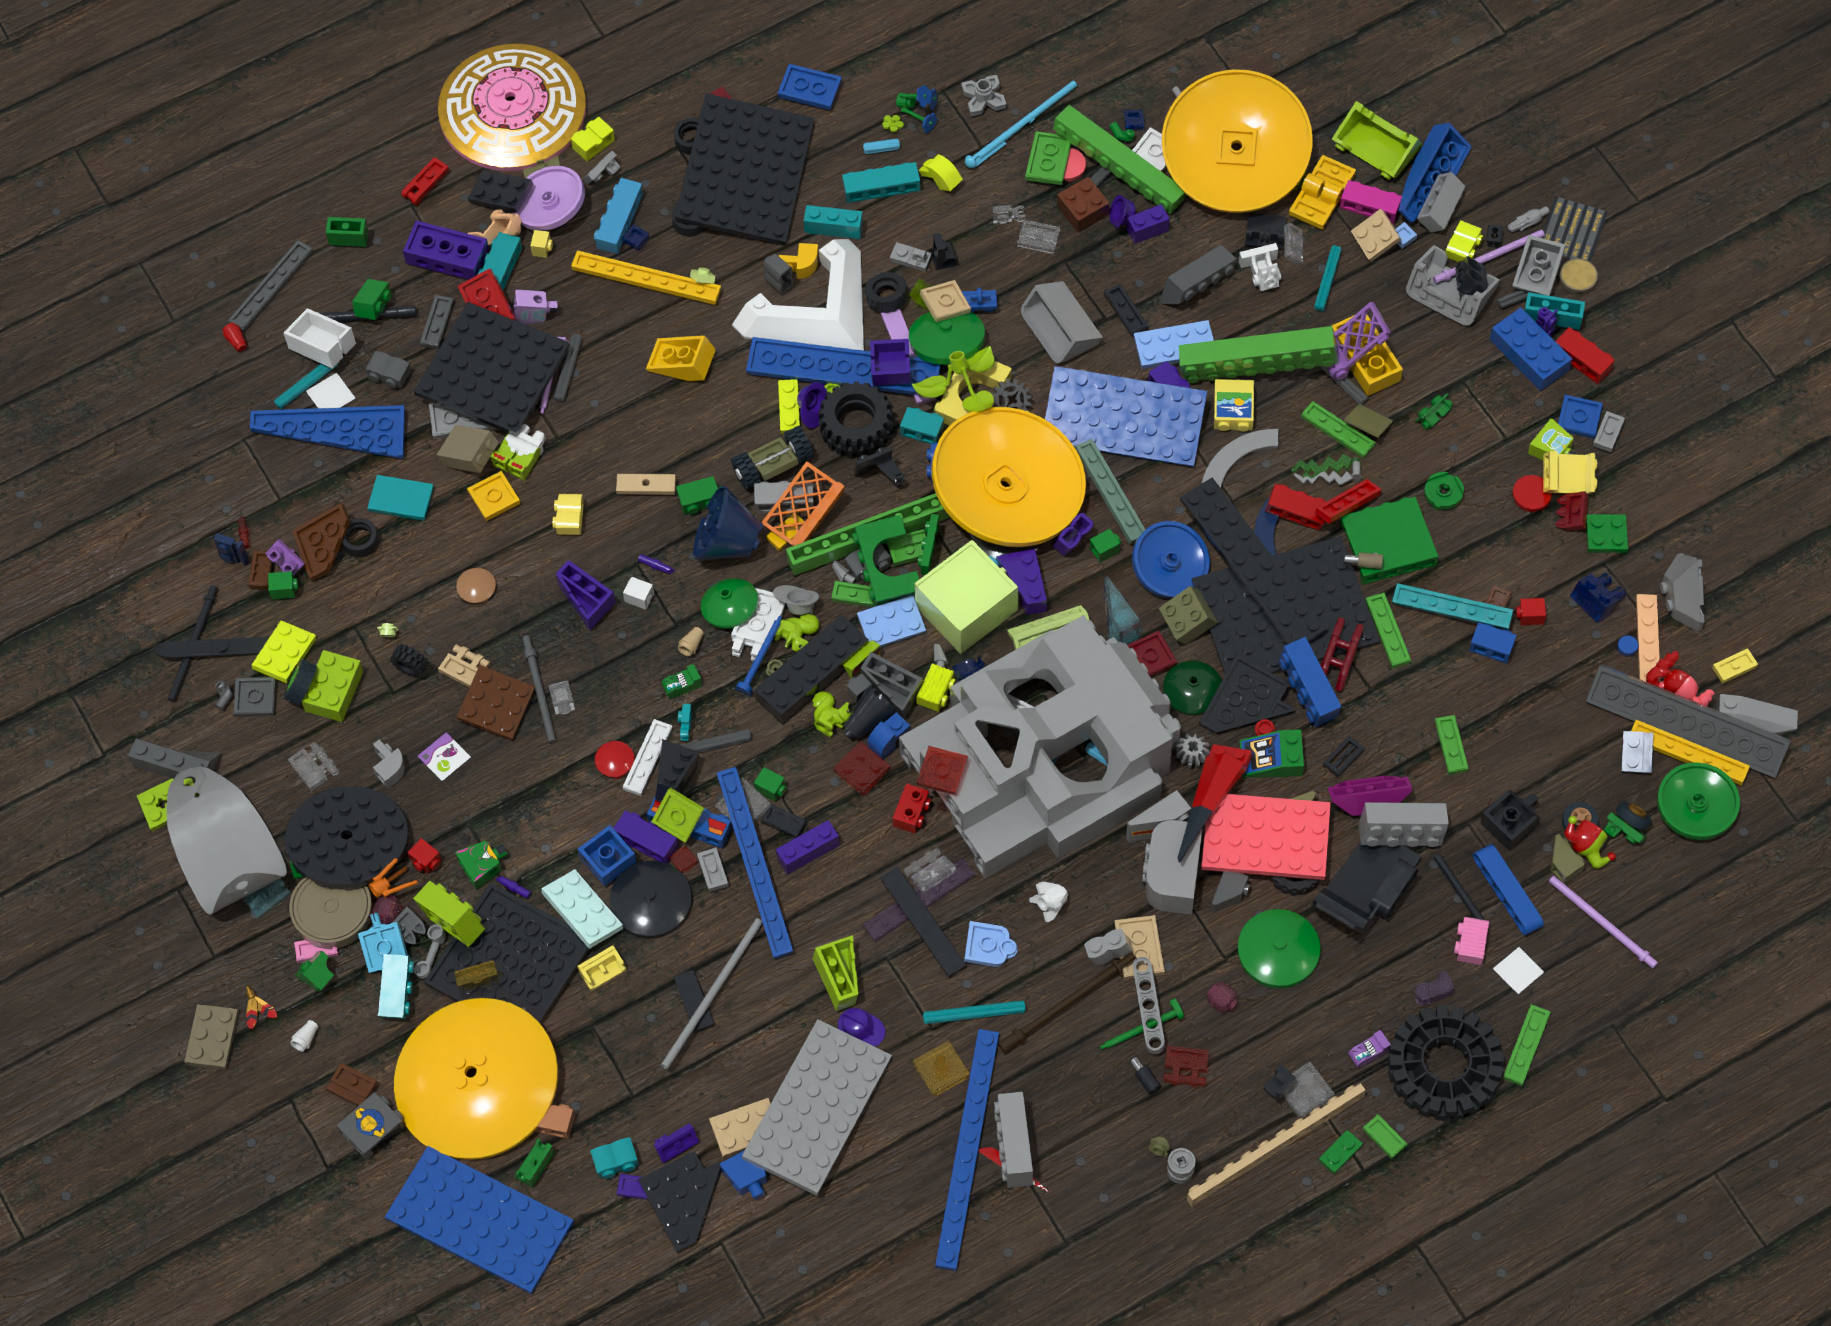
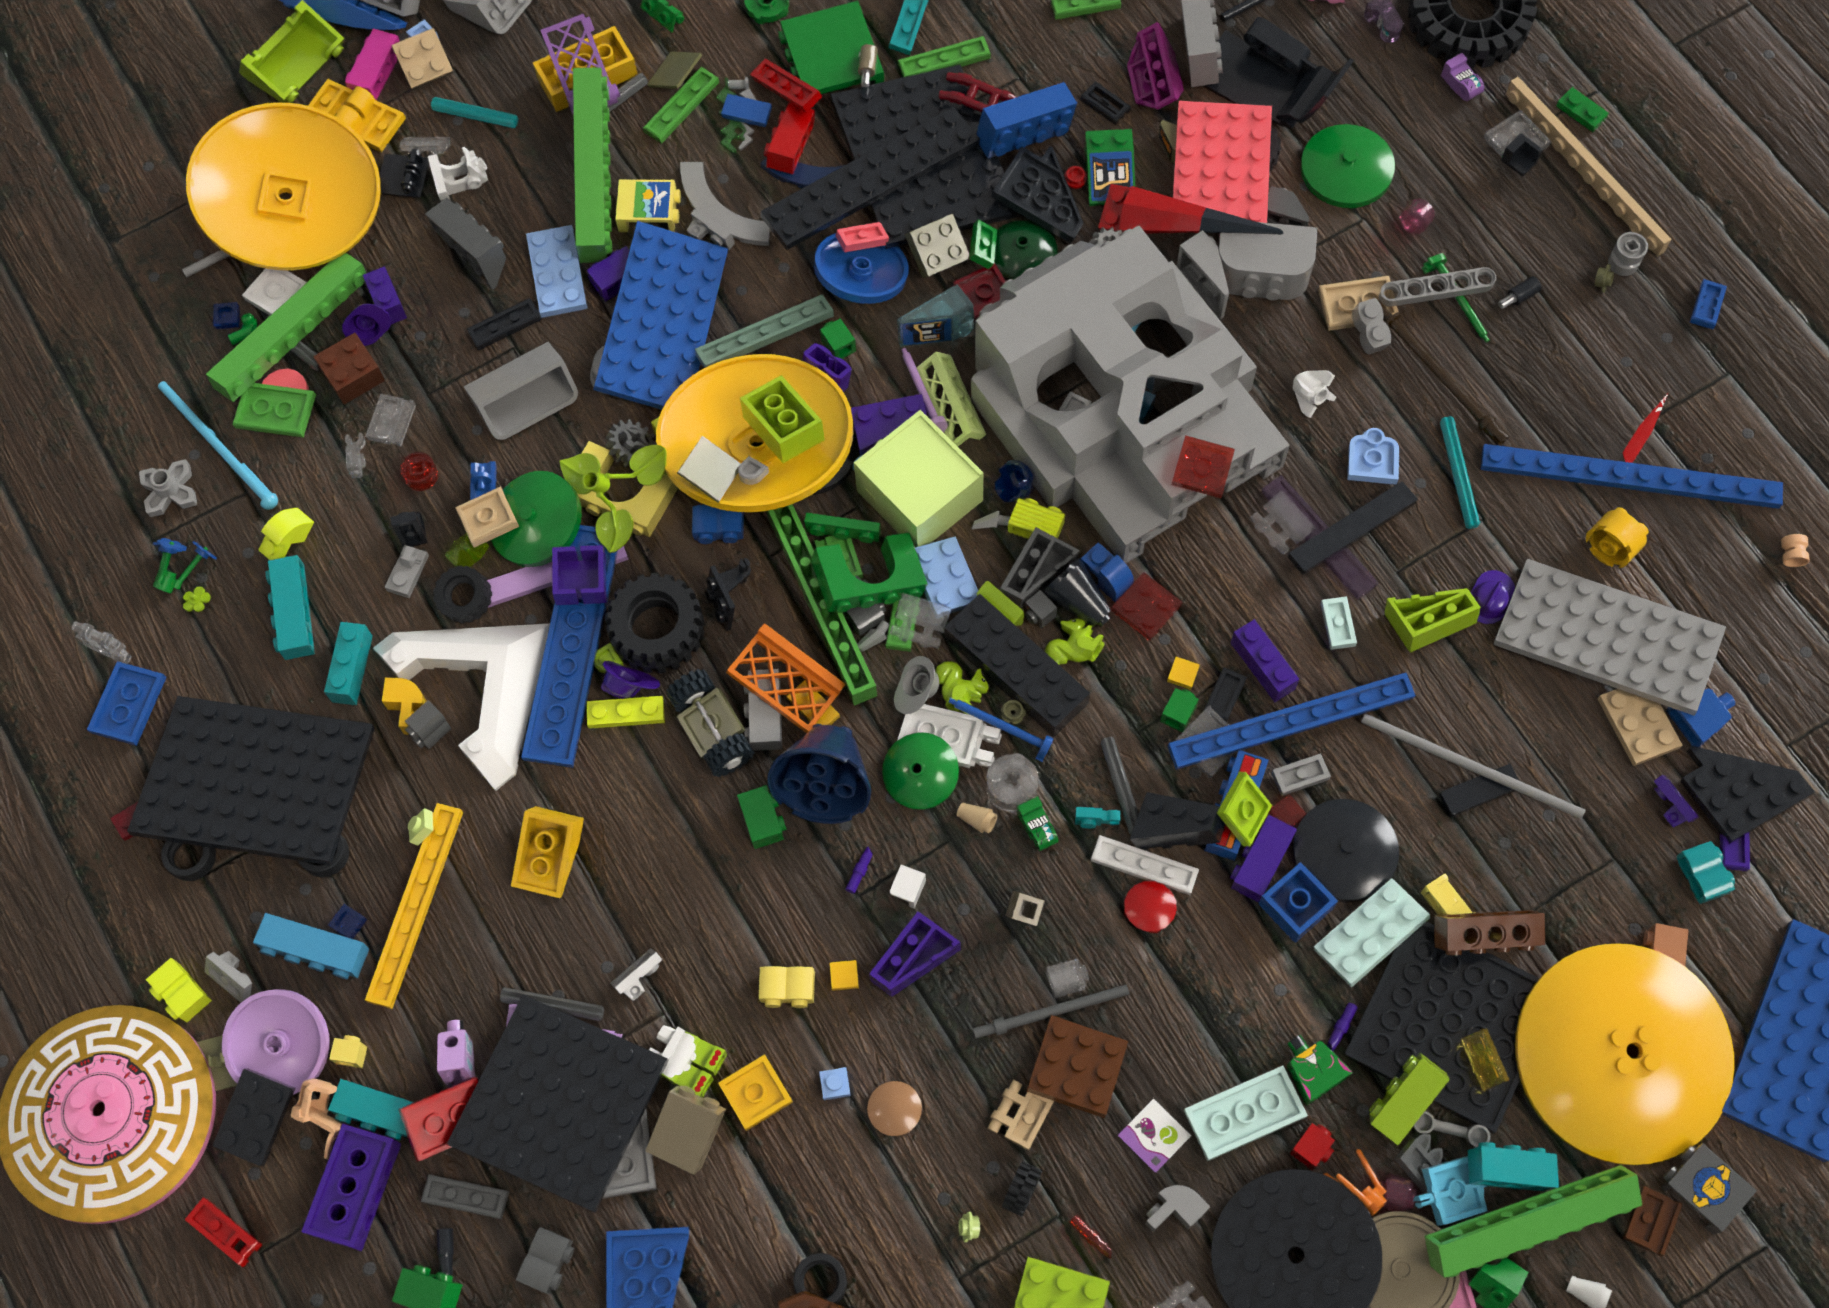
camera: 90 degrees left, 5 degrees up
(354, 993) = (1533, 1221): none -> bright green brick
(375, 711) = (1091, 1236): none -> clear red piece
(400, 497) = (753, 1227): teal tile -> none
(452, 813) = (1245, 1113): none -> light aqua plate
(497, 548) = (835, 1083): none -> light blue plate
(535, 1163) = (1726, 971): green hinge -> none
(576, 553) = (844, 975): none -> yellow tile
(580, 994) = (1528, 931): none -> reddish brown brick
(581, 414) = (628, 980): none -> hinge
(614, 668) = (1024, 908): none -> dark tan brick
(635, 484) = (741, 872): tan tile -> none
(715, 663) = (1015, 769): none -> clear brick
(803, 791) = (1183, 673): none -> yellow tile
(839, 906) = (1338, 623): none -> light aqua plate
(854, 65) = (101, 642): none -> clear plate
(855, 600) = (923, 613): none -> clear plate
(881, 146) = (231, 611): medium azure axle -> none
(890, 1267) = (1795, 550): none -> light nougat wheel
(902, 1120) = (1617, 538): none -> yellow brick
(911, 808) = (1202, 545): red brick -> none
(922, 425) = (663, 546): teal brick -> none
(941, 1068) = (1534, 506): clear yellow tile -> none
(963, 436) = (709, 469): none -> piece
(964, 467) = (752, 471): none -> light grey tile
(993, 259) = (419, 471): none -> clear red wheel
(1008, 486) = (782, 419): none -> lime brick
(1014, 1140) = (1625, 417): light grey brick -> none
(1024, 615) = (939, 421): none -> lavender piece
(1133, 1231) = (1708, 304): none -> blue plate
(1186, 1059) = (1494, 252): clear red plate -> none
(1191, 651) = (983, 244): none -> green hinge
(1195, 558) = (862, 237): none -> coral plate
(1212, 447) = (705, 225): none -> light grey hinge
(1327, 475) = (746, 110): none -> blue tile
(1384, 1136) = (1558, 69): bright green tile -> none

